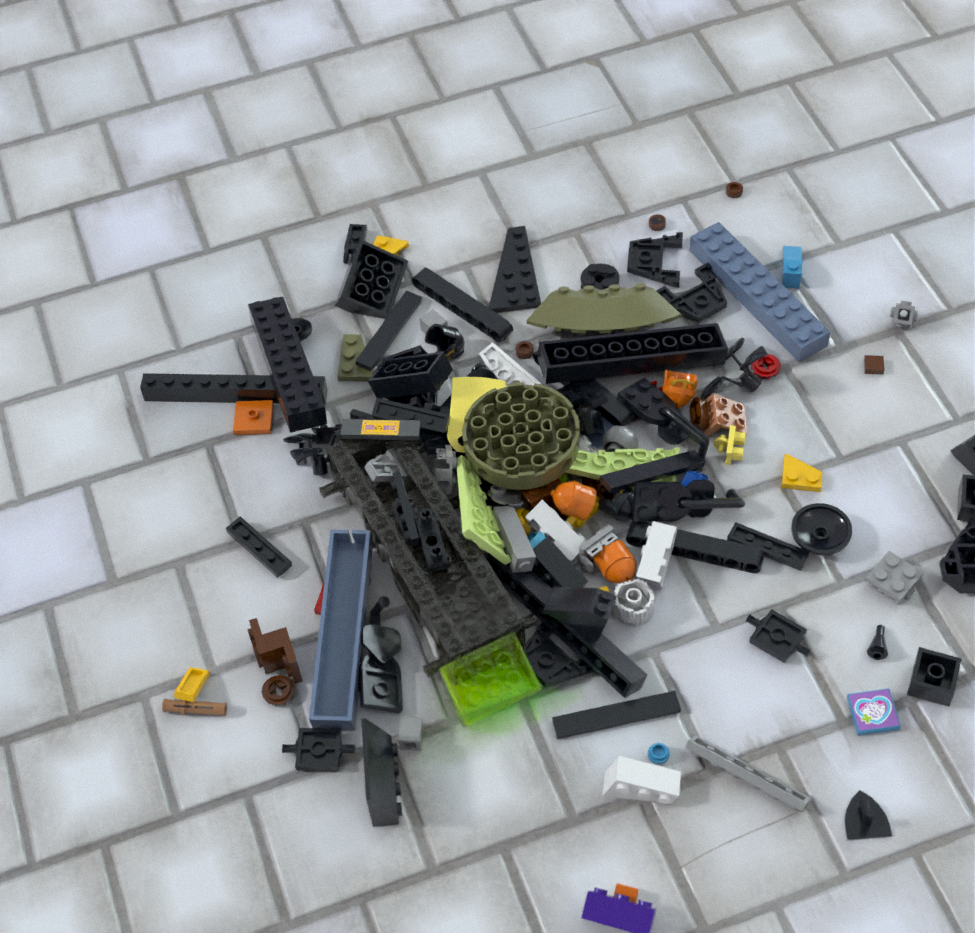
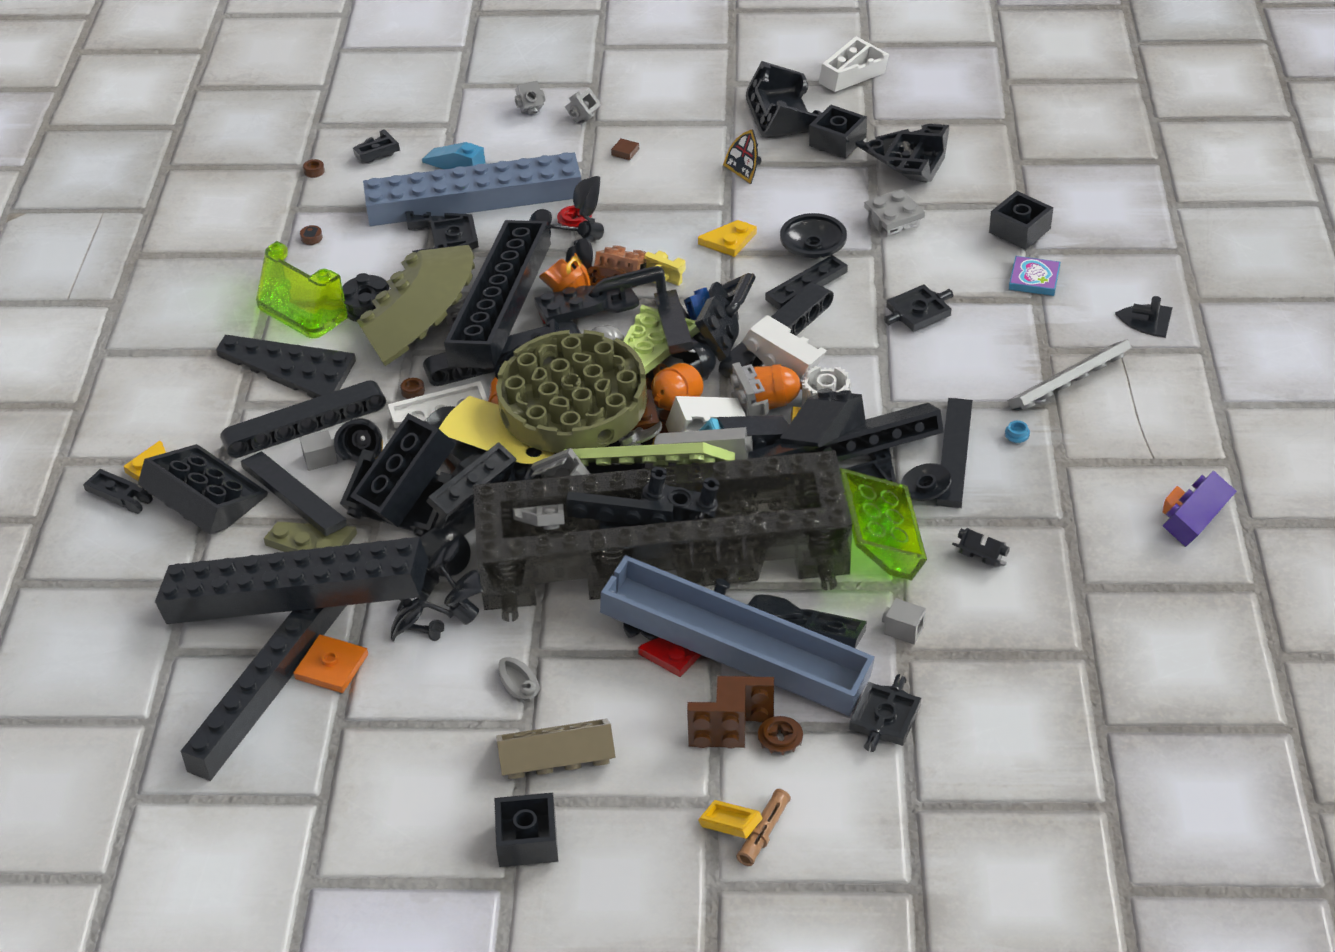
camera: 70 degrees left, 10 degrees down
(144, 573) = (526, 829): none -> black brick
(221, 563) = (555, 747): none -> dark tan slope
(259, 546) = (549, 703): black plate -> none
(274, 520) = (518, 678): none -> light grey arm
(380, 429) = (490, 497): dark grey tile -> none
(380, 775) = (957, 654): black slope -> none
(505, 763) = (991, 551): none -> black hinge
(564, 703) = (927, 481): none -> black dish
(569, 258) = (297, 299): none -> clear neon green windscreen
(641, 781) = (1049, 451): white wedge -> none
(646, 258) = (361, 255): black wing -> none
(777, 213) = (371, 149): none -> black wing
(878, 648) = (965, 247): black cone -> none
(893, 276) = (532, 91): none -> light grey brick
(902, 446) = (743, 156): none -> shield

